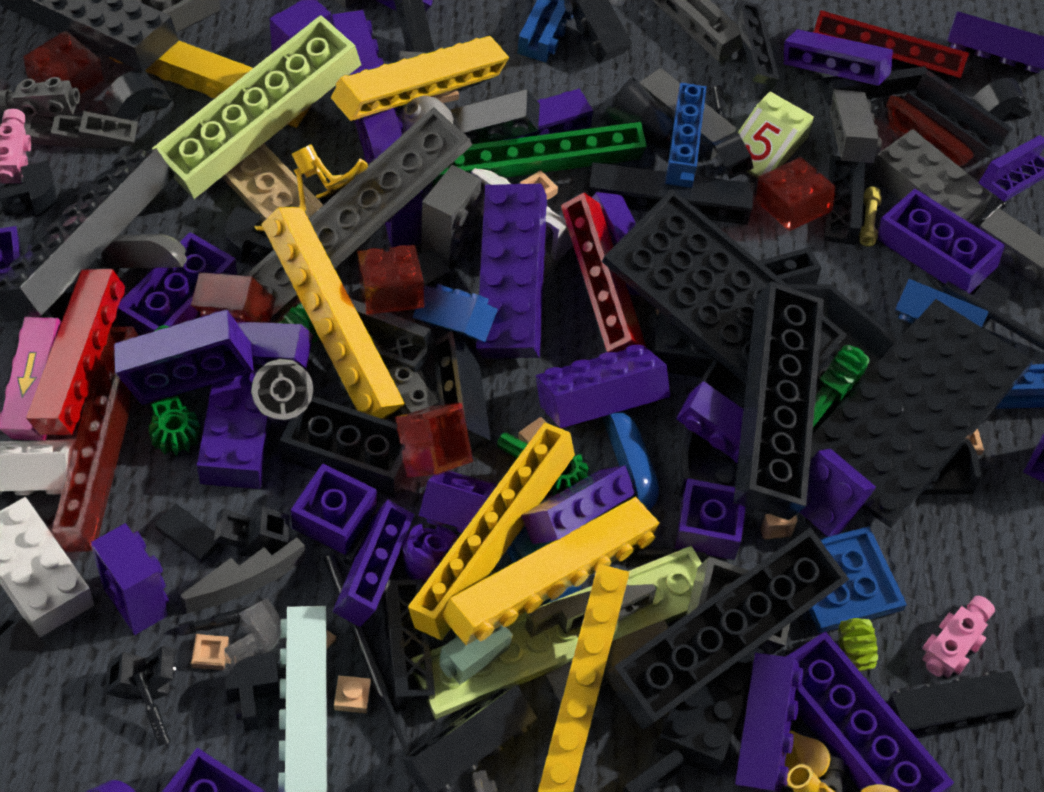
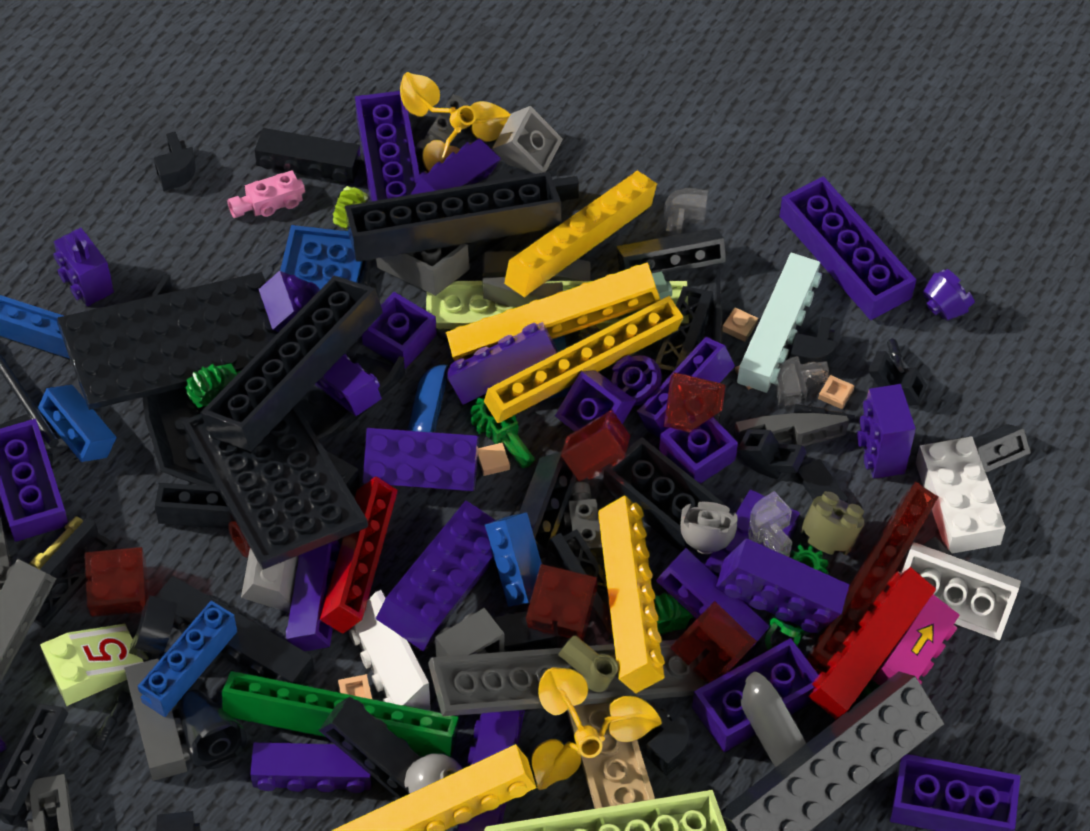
camera: 150 degrees left, 0 degrees up
(141, 472) = (832, 524): none -> olive brick
(223, 418) = (768, 520): none -> clear brick
(337, 217) = (595, 668): none -> olive piece
(355, 520) = (692, 402): none -> clear red plate

